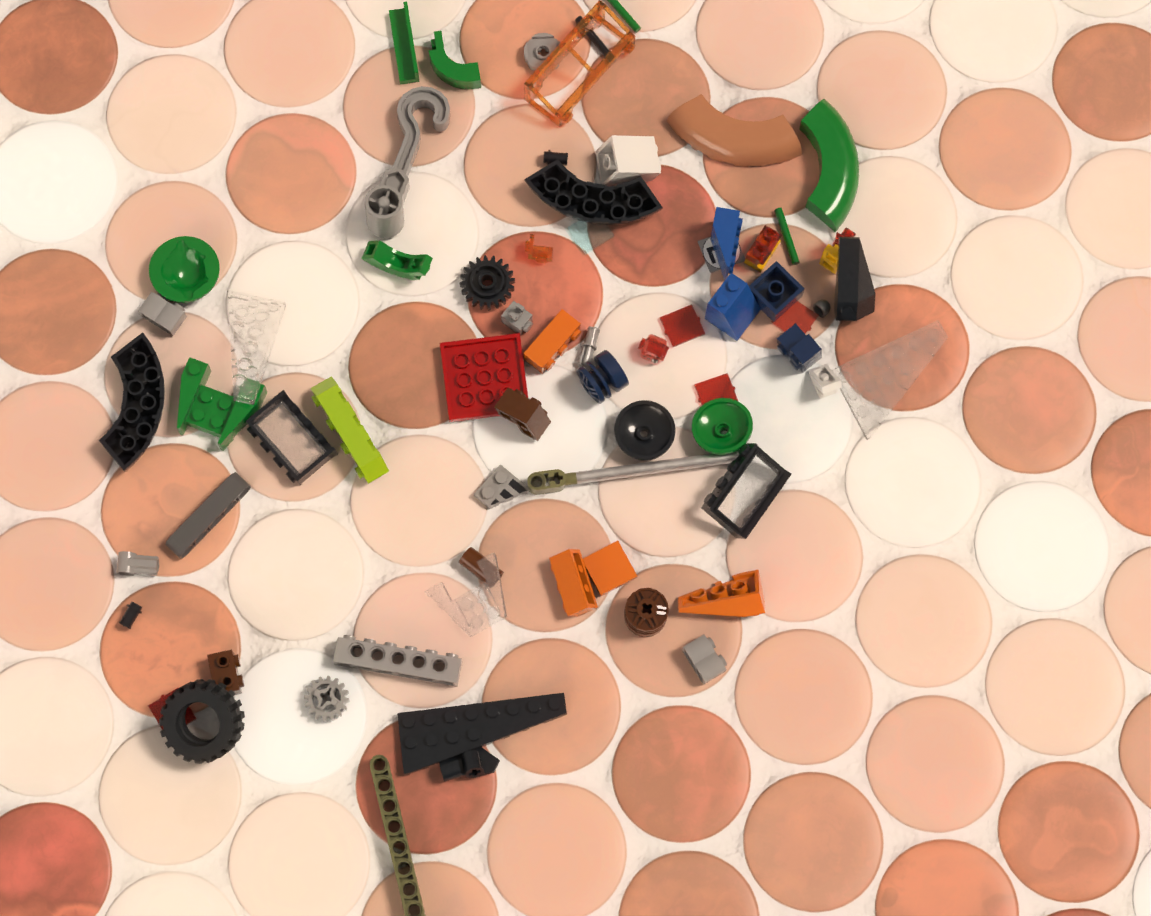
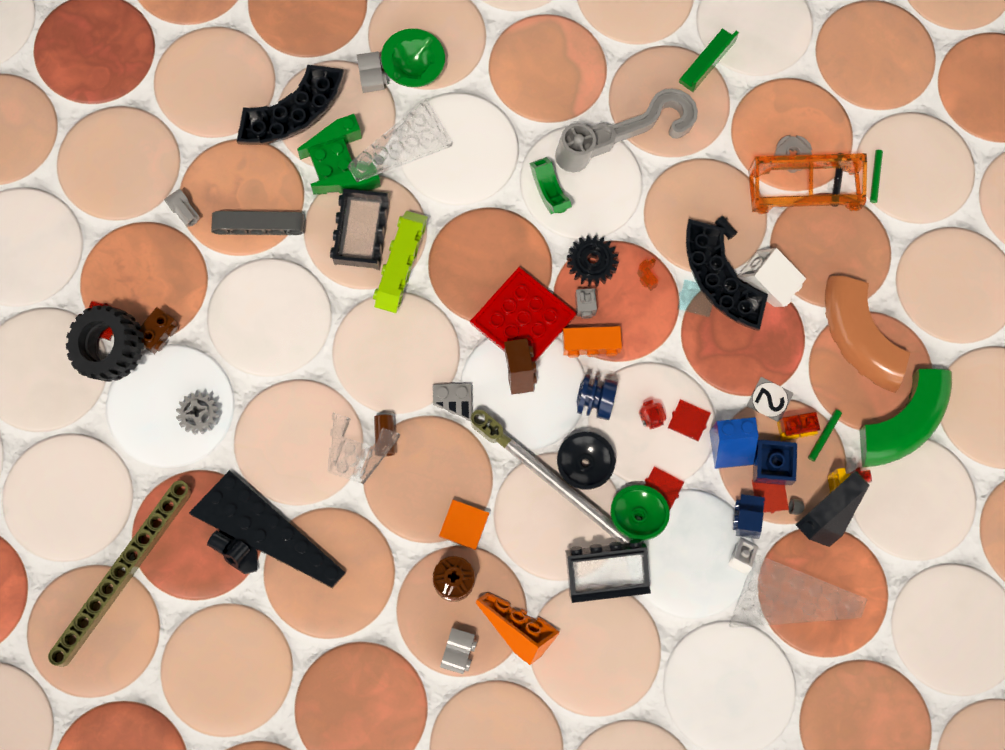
camera: 45 degrees right, 0 degrees up
(130, 615) = (144, 234): black pin -> none
(348, 643) = (238, 398): light grey brick -> none
(452, 73) = (720, 110): green arch -> none
(573, 582) = (429, 508): orange brick -> none
(589, 345) = (612, 369): light grey axle -> none
(726, 237) = (785, 387): blue slope -> none

